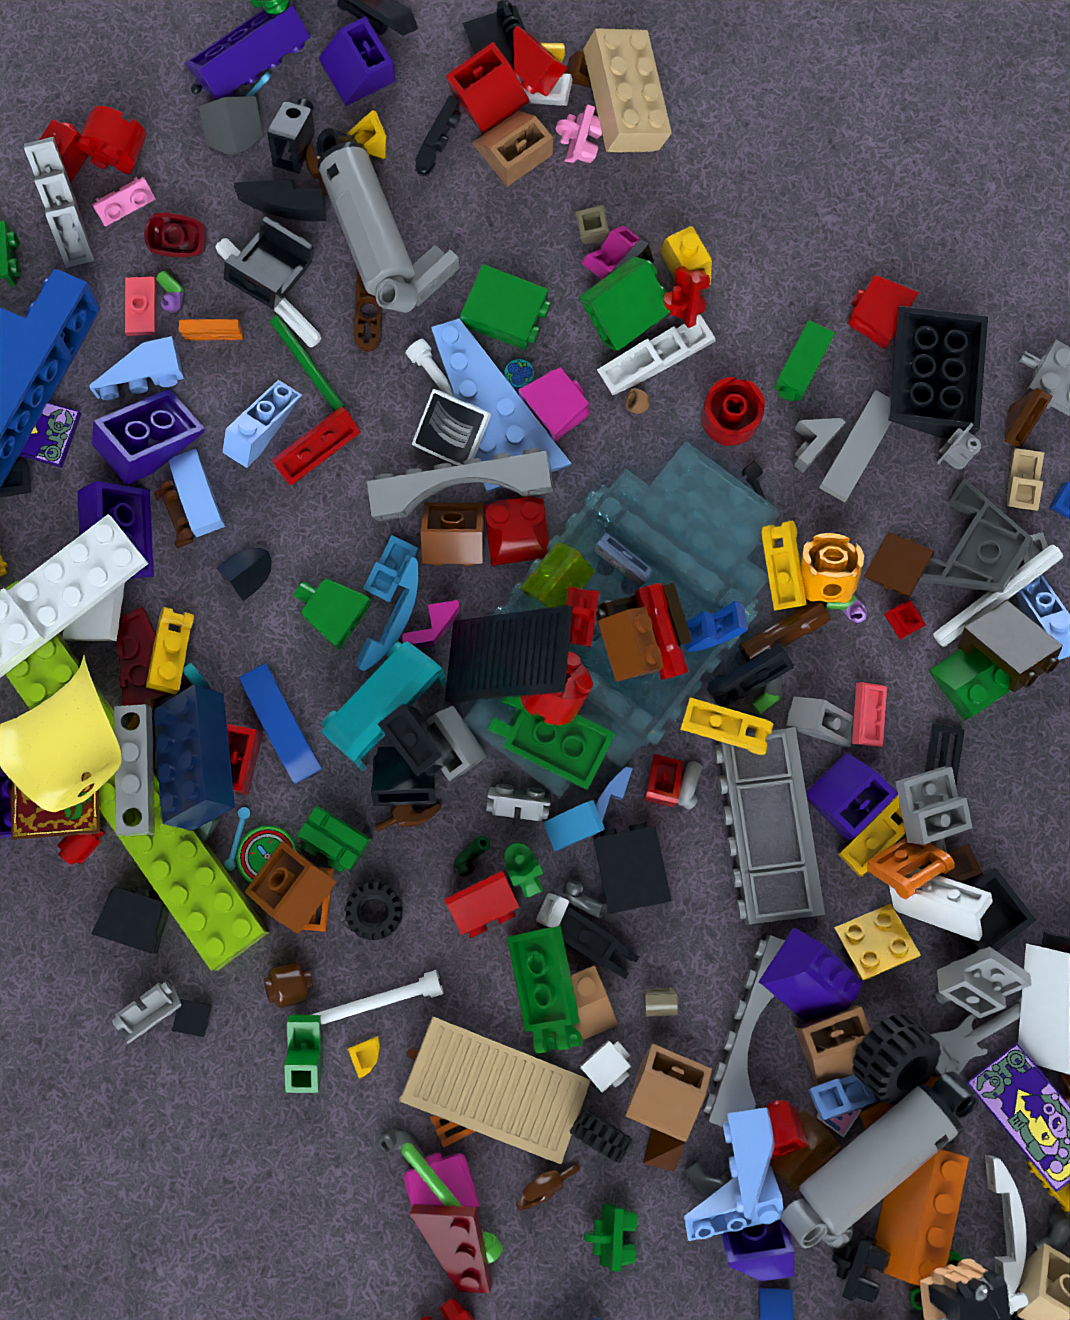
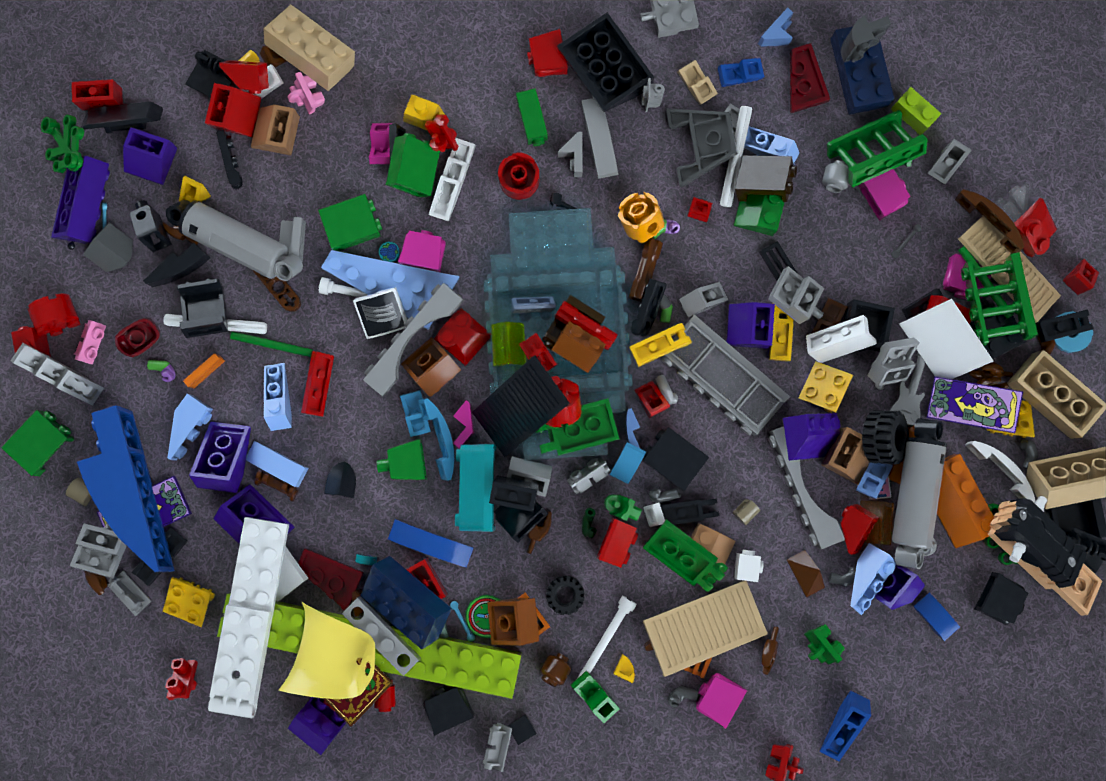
camera: 40 degrees left, 5 degrees up
(140, 306) = (153, 391): coral plate -> none
(169, 651) = (340, 558): yellow plate -> none
(334, 839) = (512, 577): green brick -> none
(458, 1244) = (752, 718): dark red wing -> none
(492, 1244) = (767, 706): bright green piece -> none
(593, 224) = (356, 137): dark tan brick -> none
(601, 1135) = (775, 603): black tyre -> none
(641, 401) = (464, 209): medium nougat hinge -> none
(668, 1092) = (790, 552): medium nougat slope -> none
(711, 630) = (611, 299): blue slope -> none
(753, 1148) = (854, 542): light blue slope -> none
(783, 566) = (616, 236): yellow plate -> none
(867, 1256) = (952, 543): black hips -> none
(869, 714) = (724, 275): coral plate -> none
(899, 564) = (672, 183): reddish brown piece -> none
(905, 857) = (803, 335): orange plate -> none
(1024, 415) = (669, 50): reddish brown slope -> none

